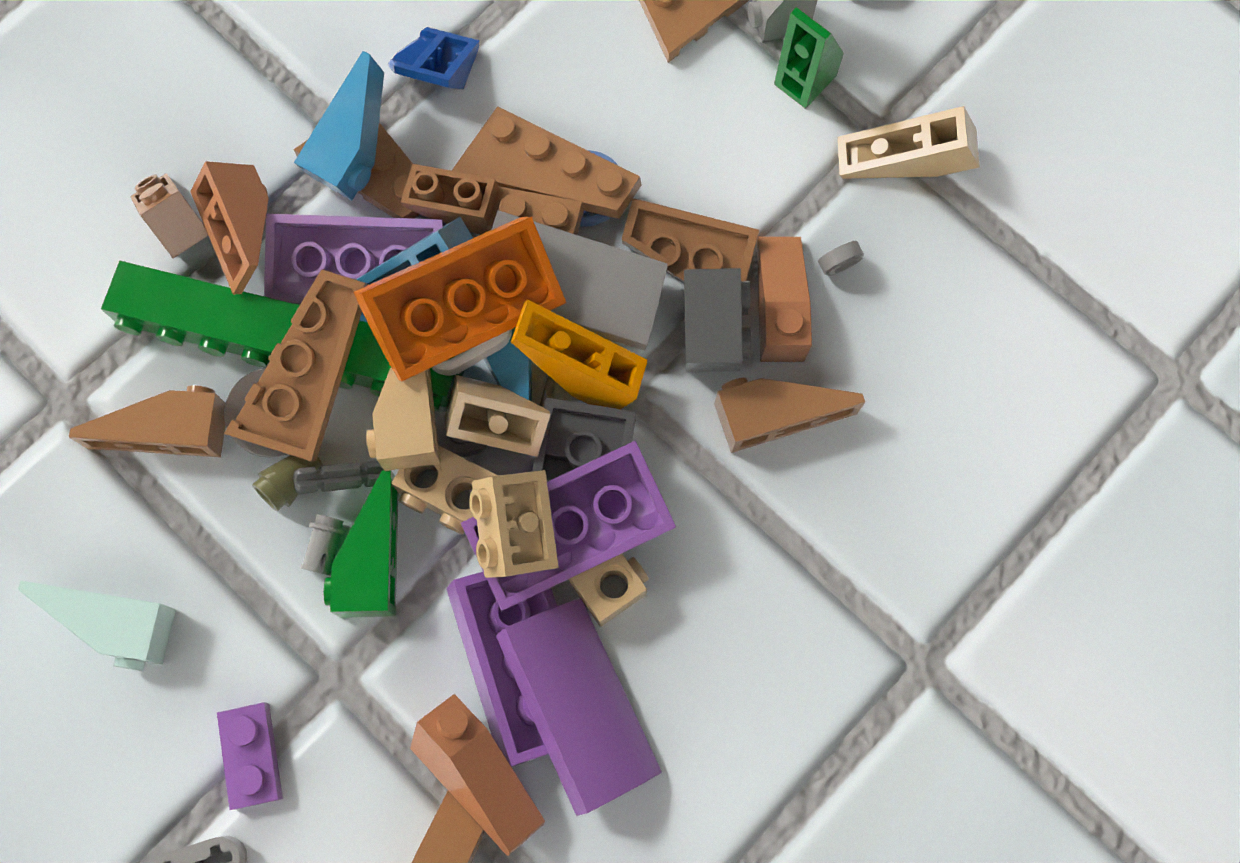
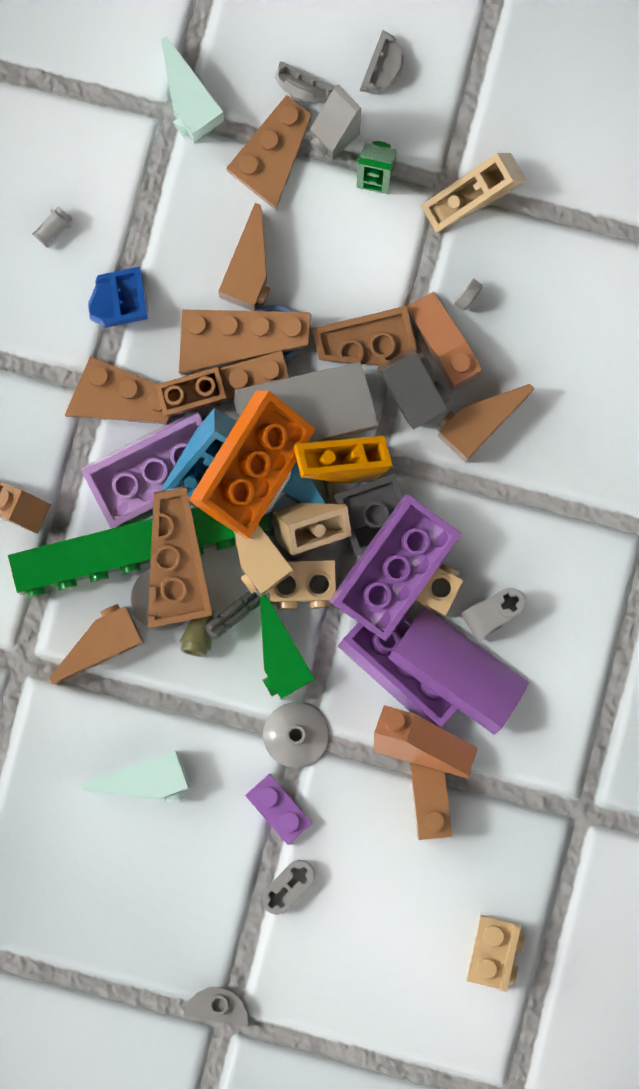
camera: 25 degrees left, 10 degrees up
(234, 216) = (63, 485): nougat slope -> none
(322, 544) = (246, 661): light grey pin -> none
(345, 138) = (103, 394): dark azure slope -> none
(352, 677) = (313, 738): none -> light grey dish
(513, 524) = (367, 587): tan bracket -> none
(594, 102) = (247, 274): none -> medium nougat slope
(654, 654) = (488, 614): none -> light grey piece

